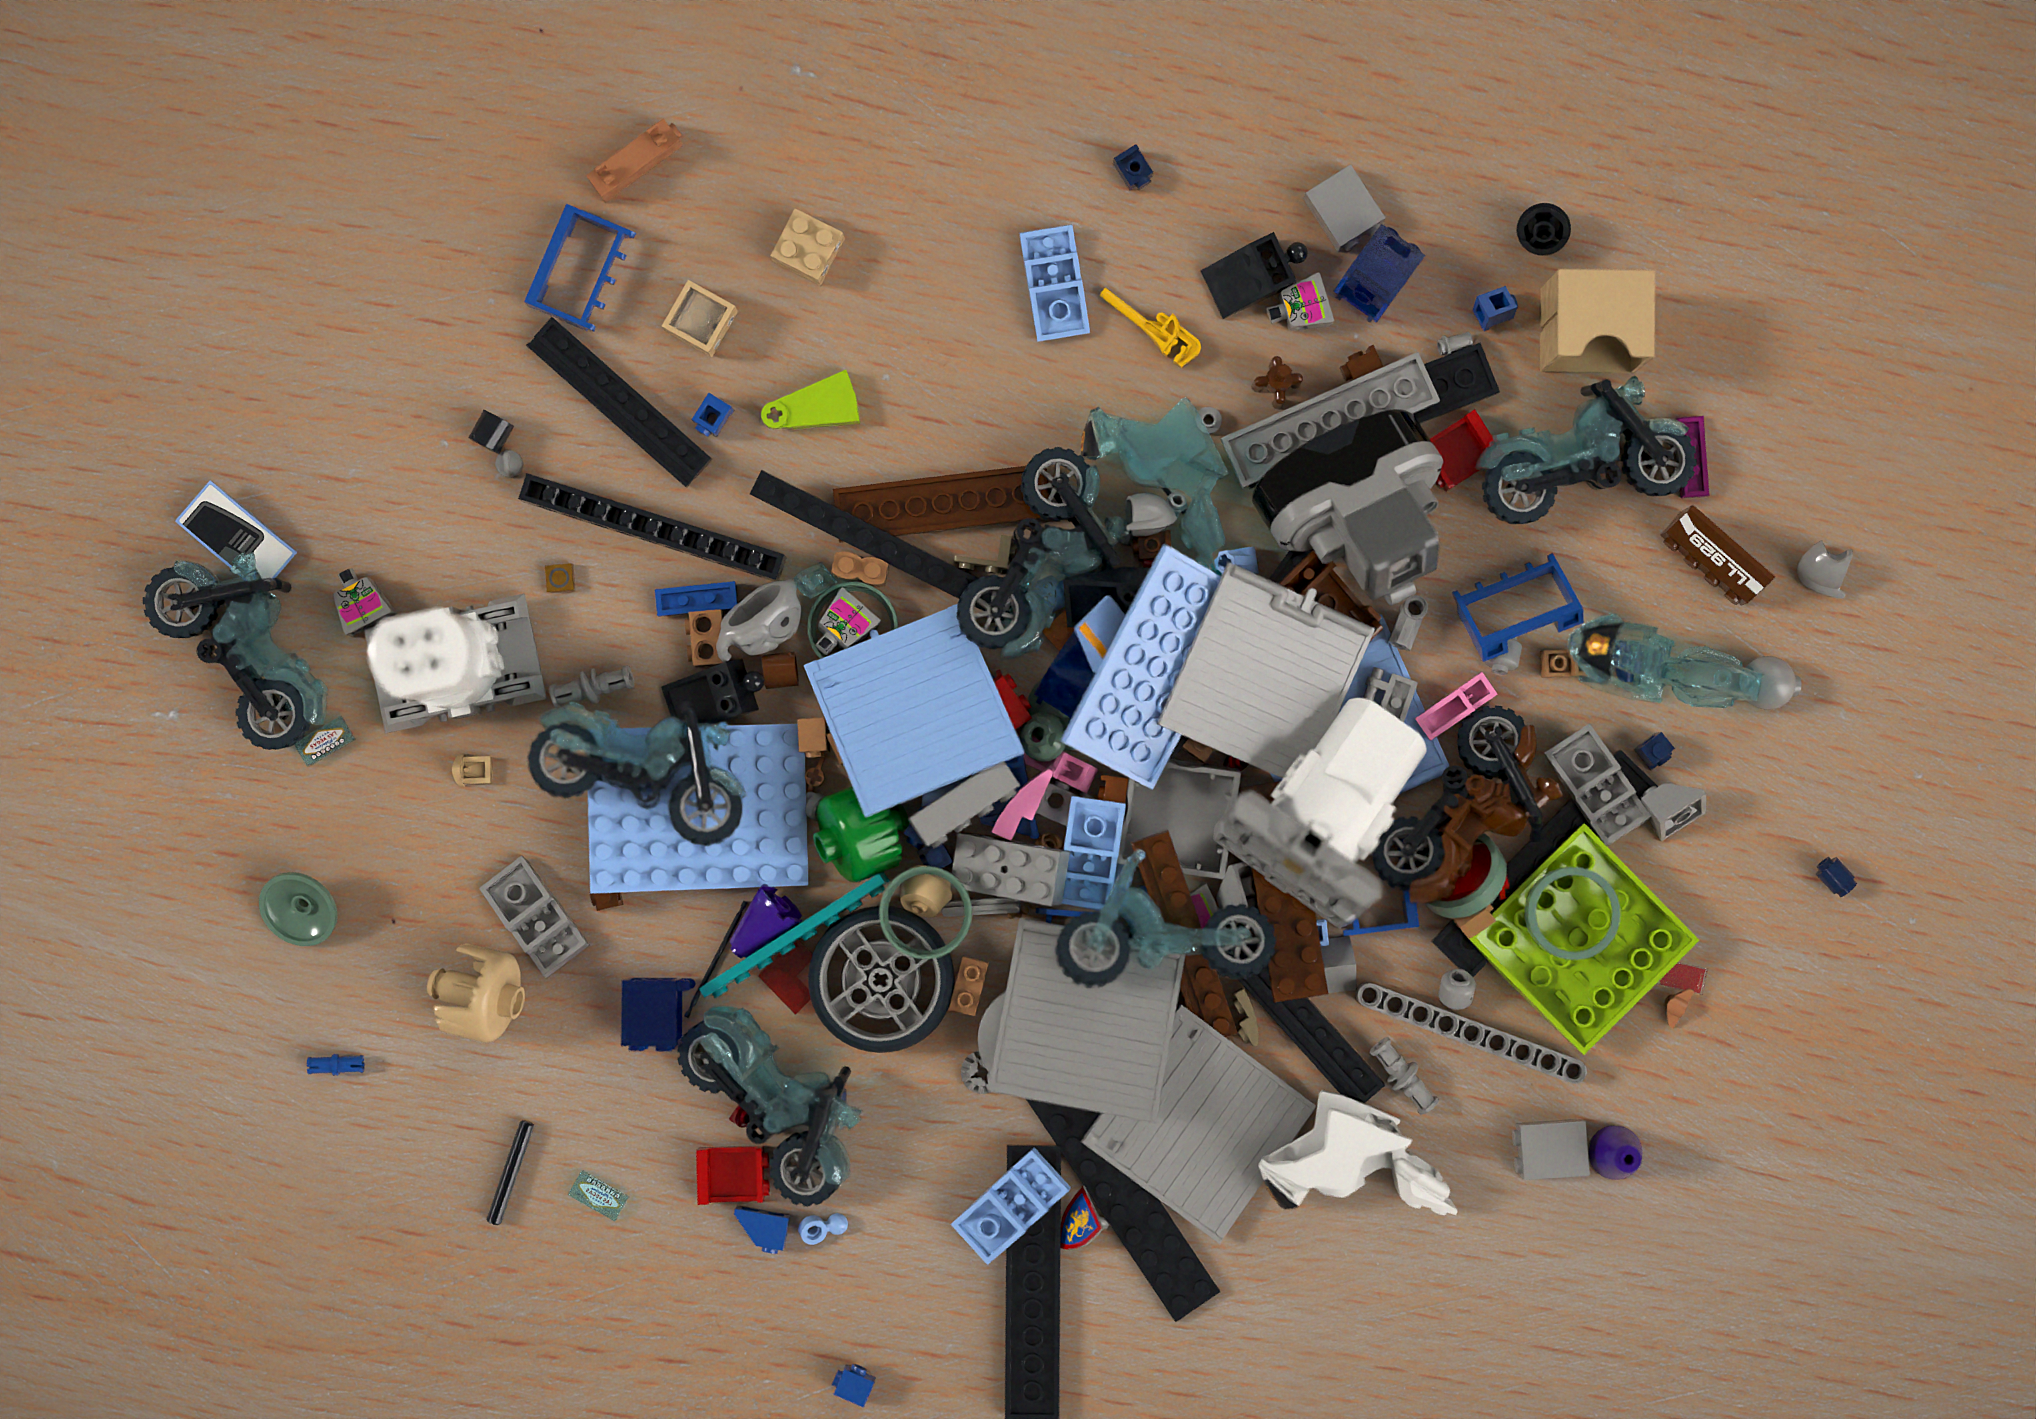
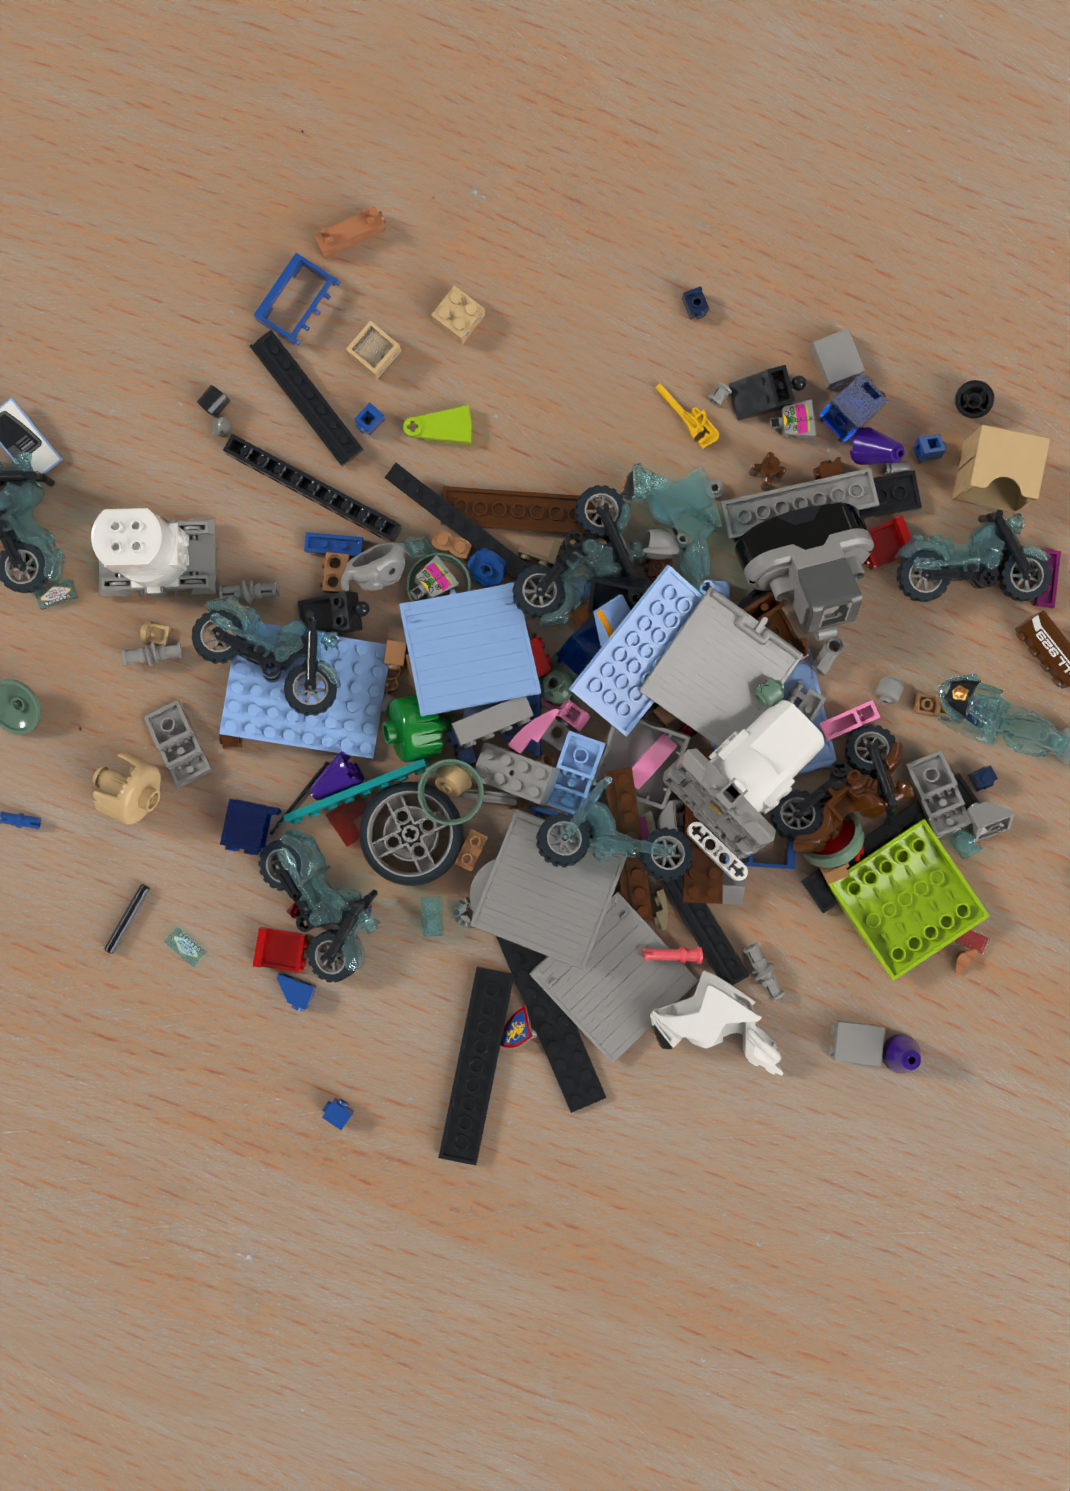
camera: 10 degrees right, 0 degrees up
(360, 603) = (97, 500): torso -> none
(474, 798) = (152, 653): none -> light grey piece
(559, 578) = (241, 512): pearl gold tile -> none
(780, 670) = (382, 605): reddish brown piece -> none
(835, 1224) = (347, 999): light blue plate -> none
(926, 583) = (493, 561): none -> blue plate
(932, 1087) = (432, 916): none -> clear light blue brick
(1010, 1206) = (471, 1009): light blue slope -> none
(1054, 282) = (625, 372): light blue slope -> none
(1114, 789) = (599, 732): dark orange brick -> none
(1190, 288) = (719, 394): none -> light grey bush
(1194, 813) = (652, 759): none -> bright pink slope
(1285, 1075) = (682, 955): none -> coral pin
(1305, 927) = (715, 853): none -> white beam
(1338, 690) = (769, 692): none -> sand green head
(1419, 323) = (874, 447): none -> dark purple cone
(1457, 989) = (812, 918): light grey head -> none
(1482, 1038) = (825, 952): light grey beam -> none
(1496, 643) = (886, 681): blue hinge -> none
(1530, 912) = (874, 879): sand green piece -> none
(1647, 846) = (964, 843): none -> clear light blue brick

